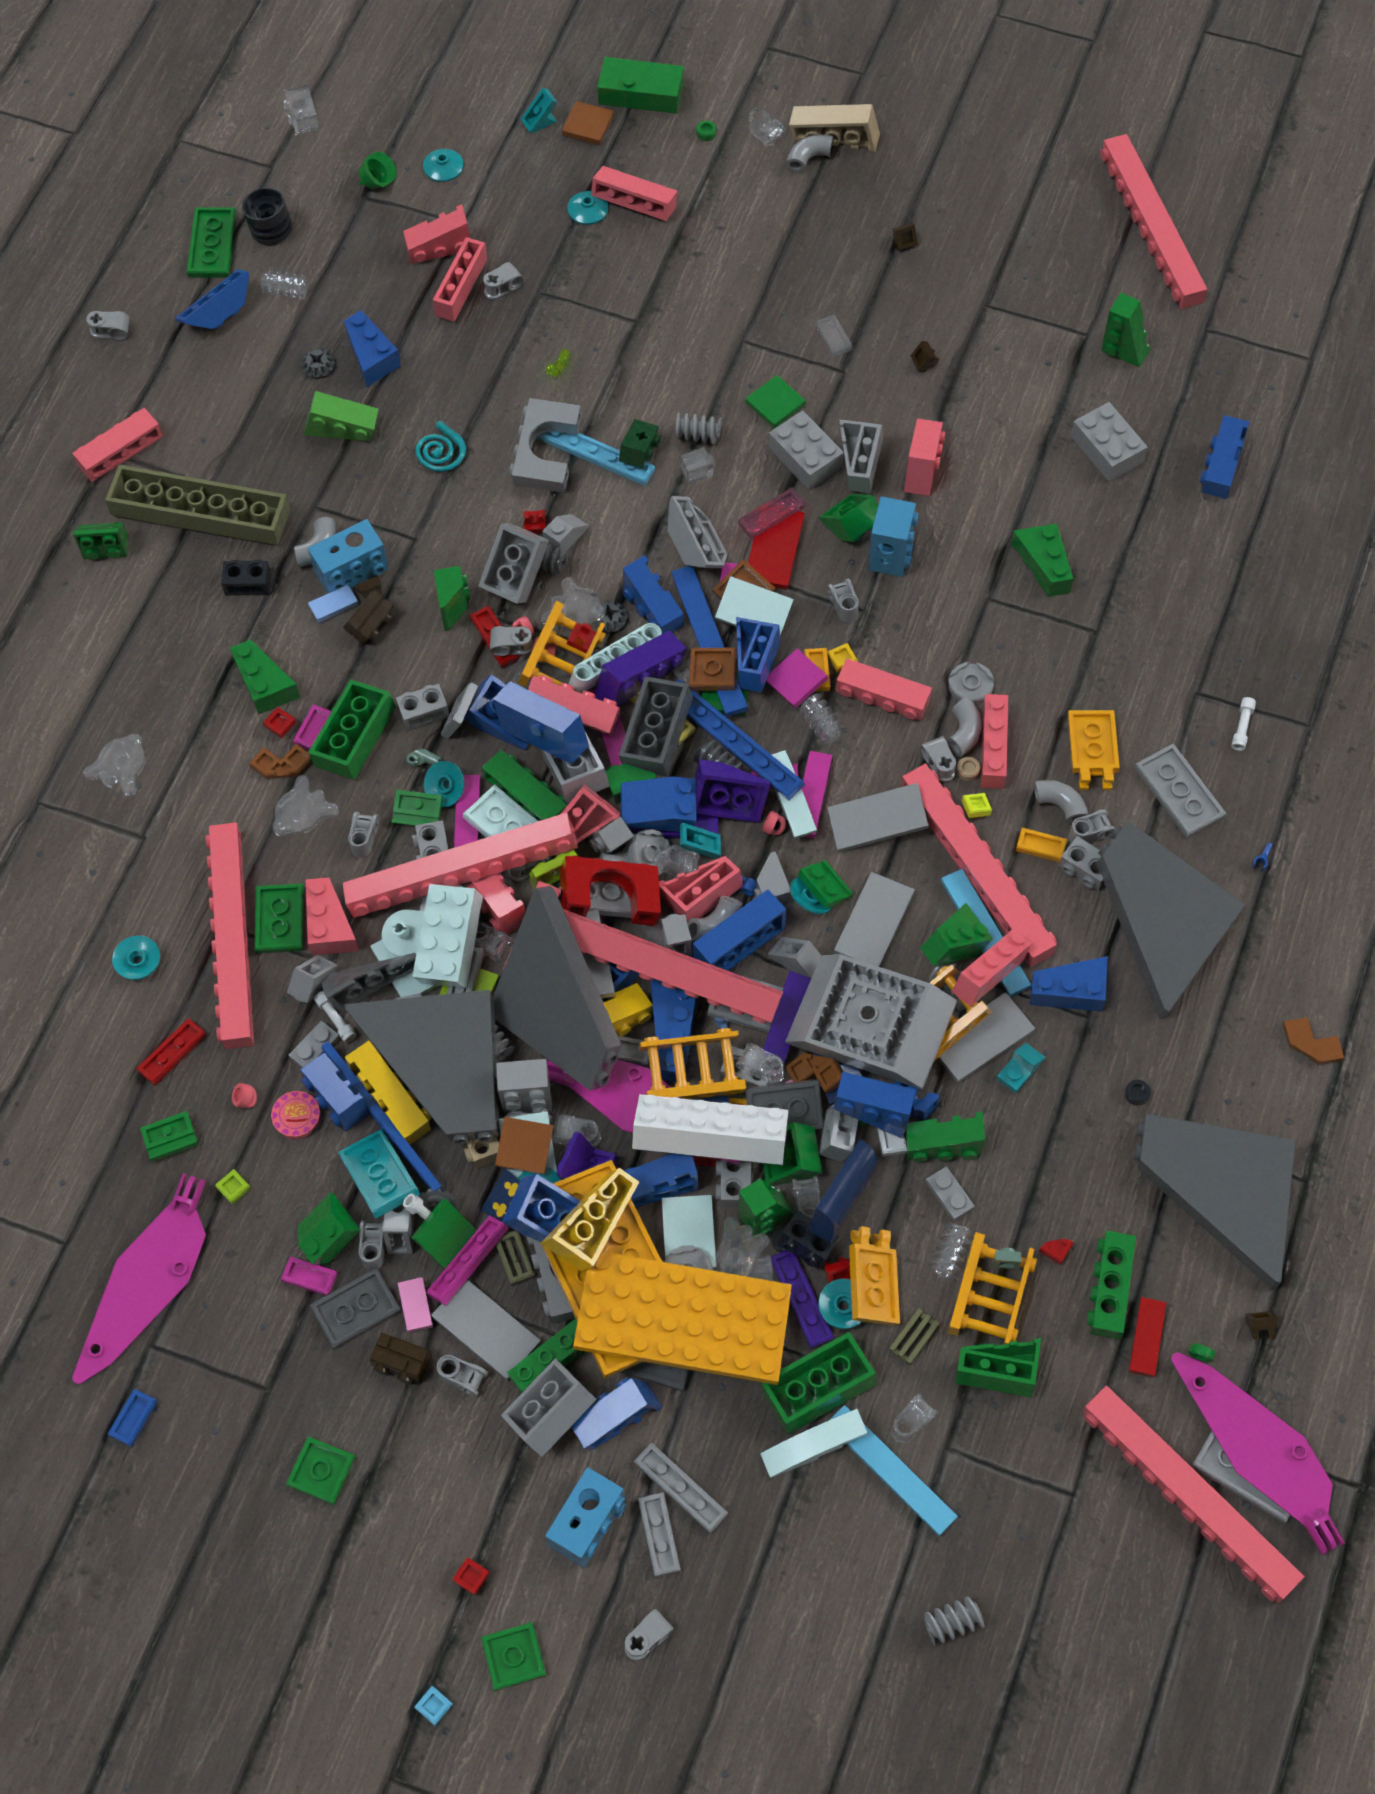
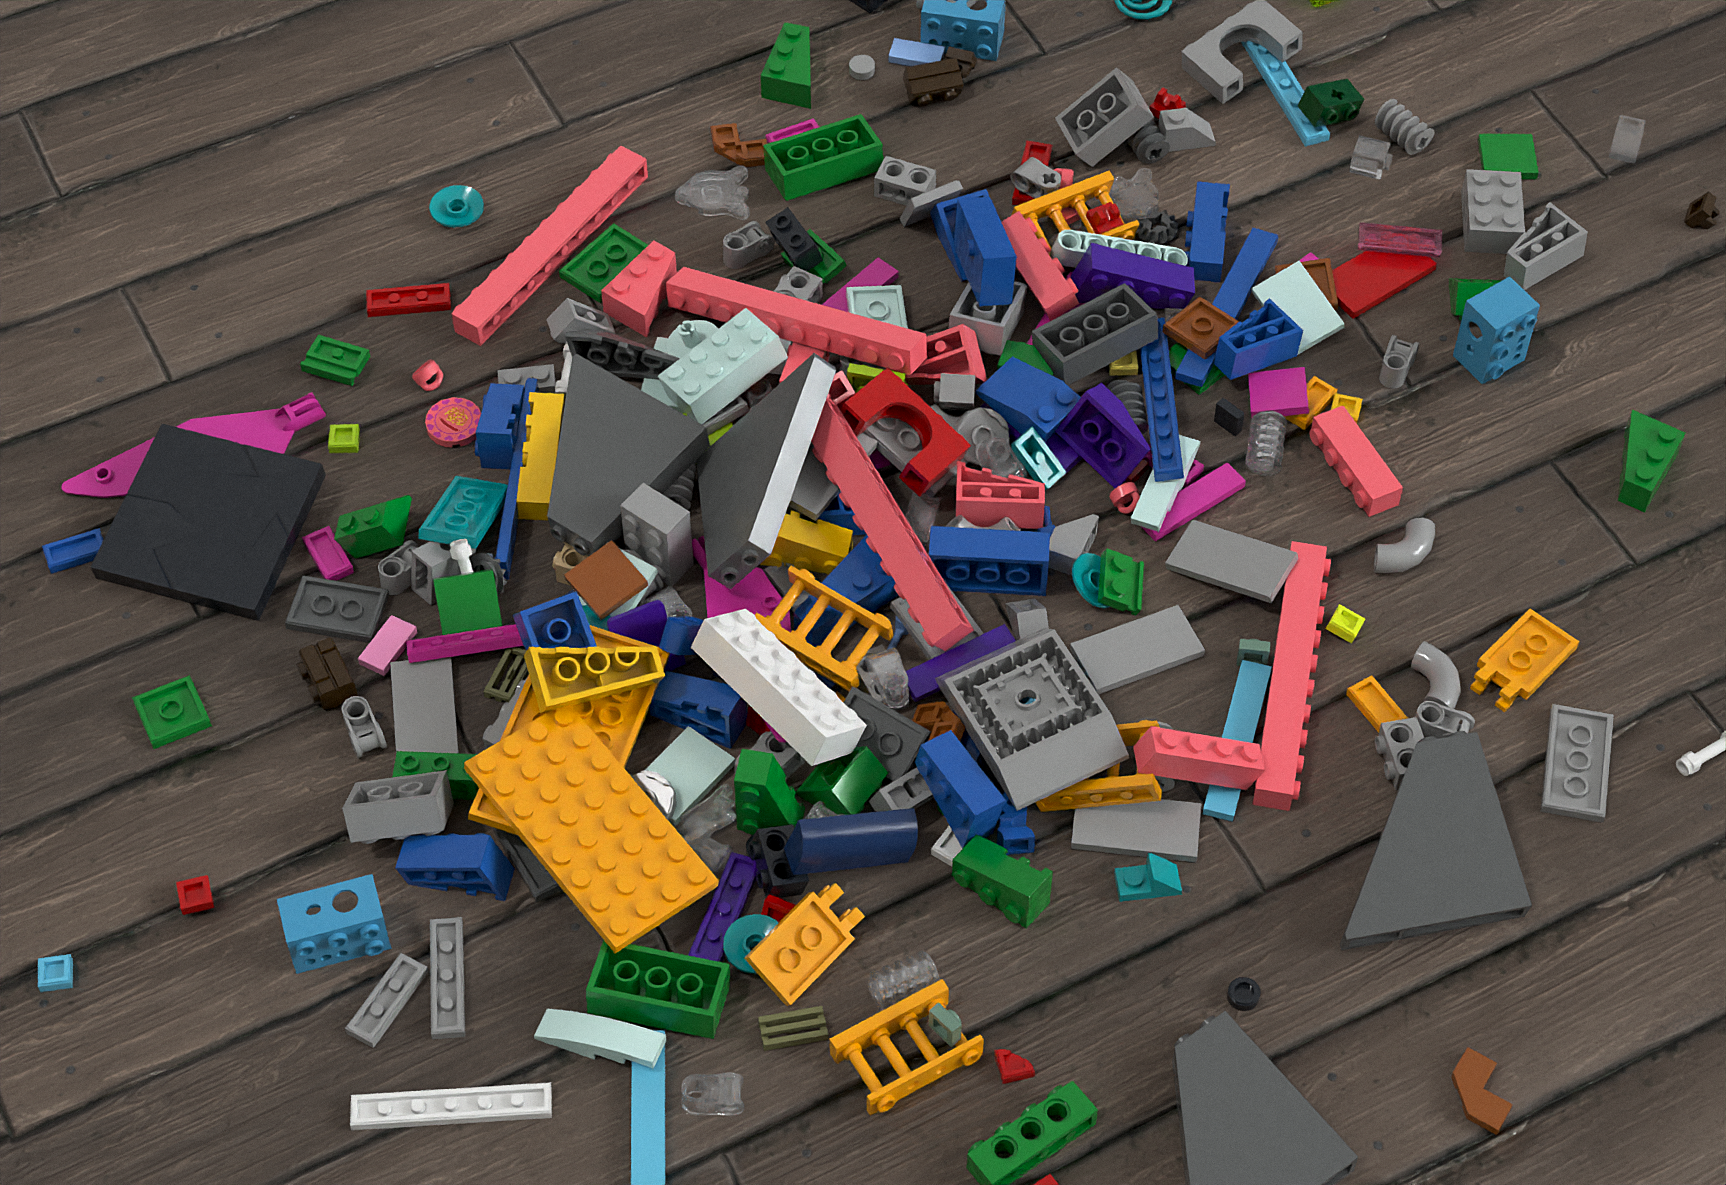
camera: 40 degrees right, 10 degrees down
(119, 762) = (605, 55): clear tile -> none
(208, 1321) = (209, 521): none -> black tile
(279, 722) = (769, 112): red plate -> none
(306, 640) = (862, 67): none -> light grey tile
(398, 807) = (794, 240): none -> black brick
(421, 757) = (864, 223): sand green arm -> none
(437, 778) = (859, 253): teal dish -> none
(452, 594) = (1021, 109): green slope -> none
(513, 1656) = (160, 991): green tile -> none
(522, 786) = (923, 297): green brick -> none
(609, 1141) = (680, 635): none -> blue beam
(651, 1632) = (285, 1070): light grey piece -> none
(676, 934) = (925, 509): light grey brick -> none
(694, 535) = (1307, 209): light grey wedge -> none
(766, 1565) = (451, 1106): none -> white tile
(782, 718) = (1229, 417): none -> black tile
(924, 456) = (1608, 291): coral wedge -> none
(939, 758) = (1349, 558): light grey piece -> none
(944, 867) = (1253, 651): none -> sand green plate
(950, 1194) = (959, 935): light grey plate -> none
(957, 938) = (1191, 707): green wedge -> none
(968, 768) = (1372, 588): tan tile -> none
(971, 682) = (1455, 518): light grey tile -> none
(994, 741) = (1421, 580): coral brick -> none
(1000, 1368) = (842, 1117): green wedge -> none
(1071, 986) = (1273, 845): blue wedge -> none
(1263, 858) = (1603, 886): blue hand -> none

